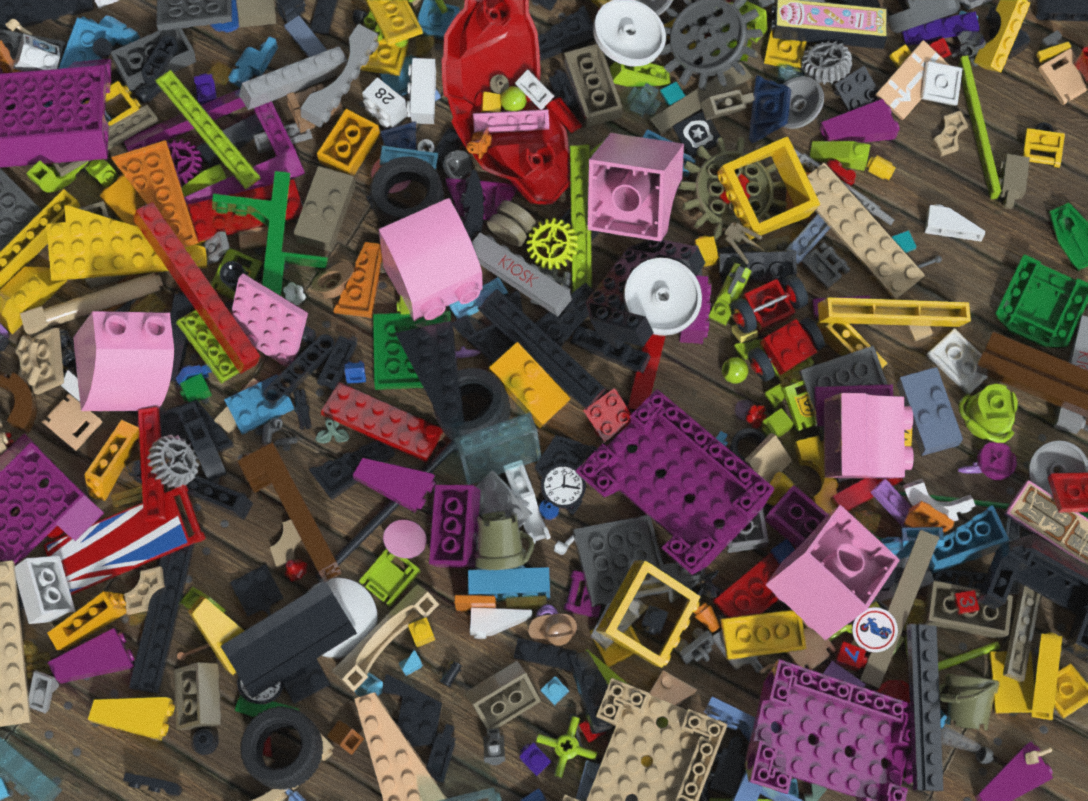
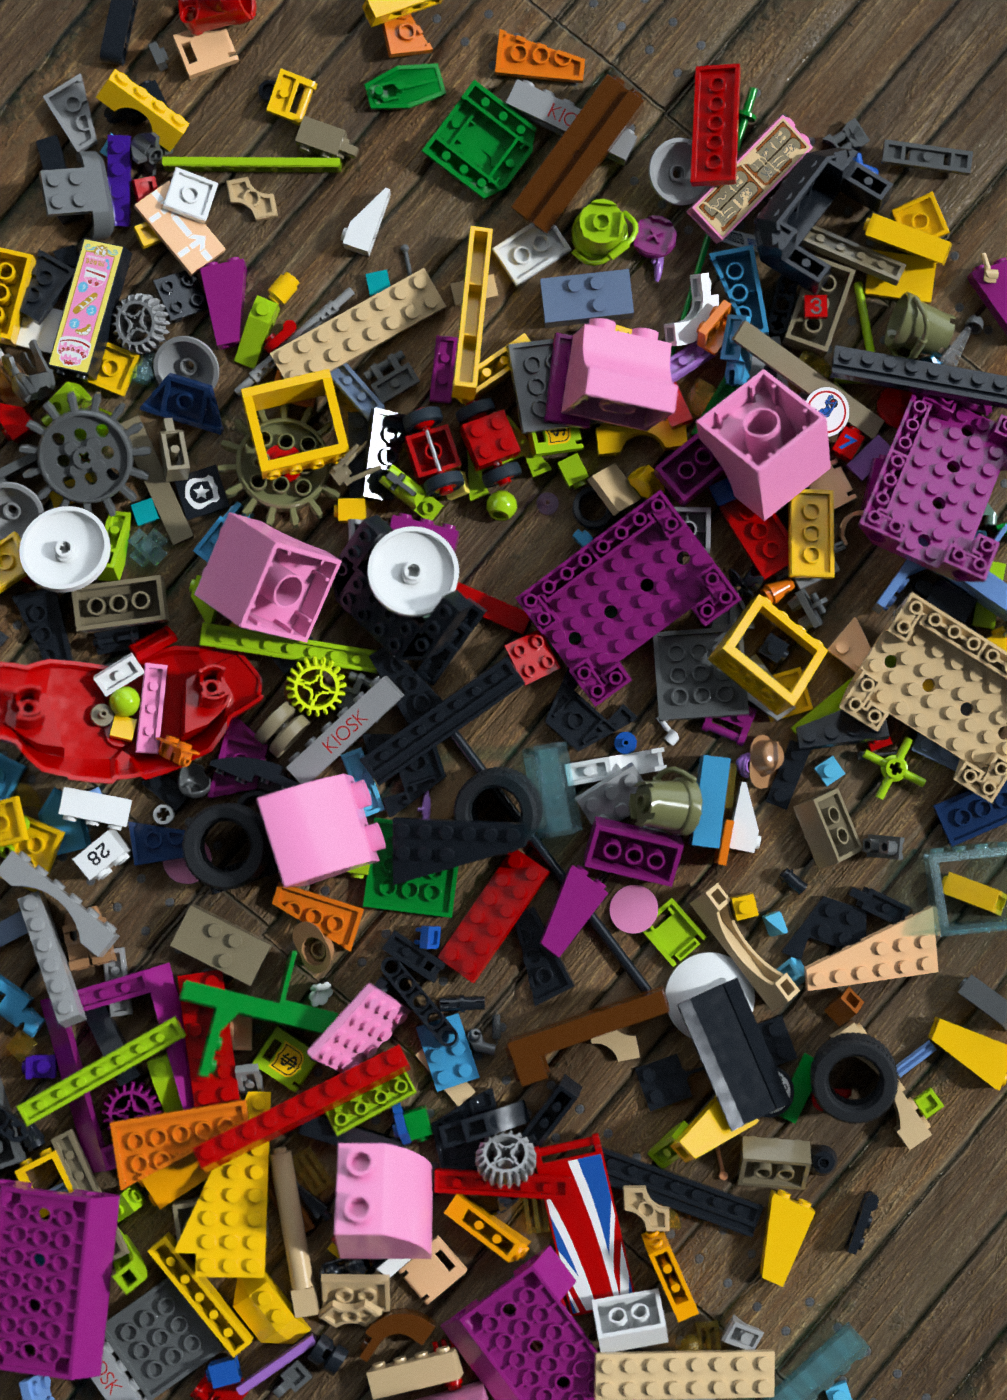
camera: 80 degrees left, 15 degrees up
(94, 658) = (712, 1270): magenta slope -> none
(230, 274) = (293, 1061): black wheel -> none
(295, 569) = (649, 1035): red piece -> none
(325, 436) = (497, 982): sand green plant -> none
(348, 143) = (145, 905): light orange brick -> none
(390, 153) = (171, 851): medium azure tile -> none
(529, 385) = (481, 742): light orange brick -> none
(534, 758) = (899, 805): dark purple bracket -> none
(563, 486) = (604, 724): sticker -> none
(756, 416) = (558, 492): red plant -> none
(1052, 52) = (173, 56): yellow tile -> none

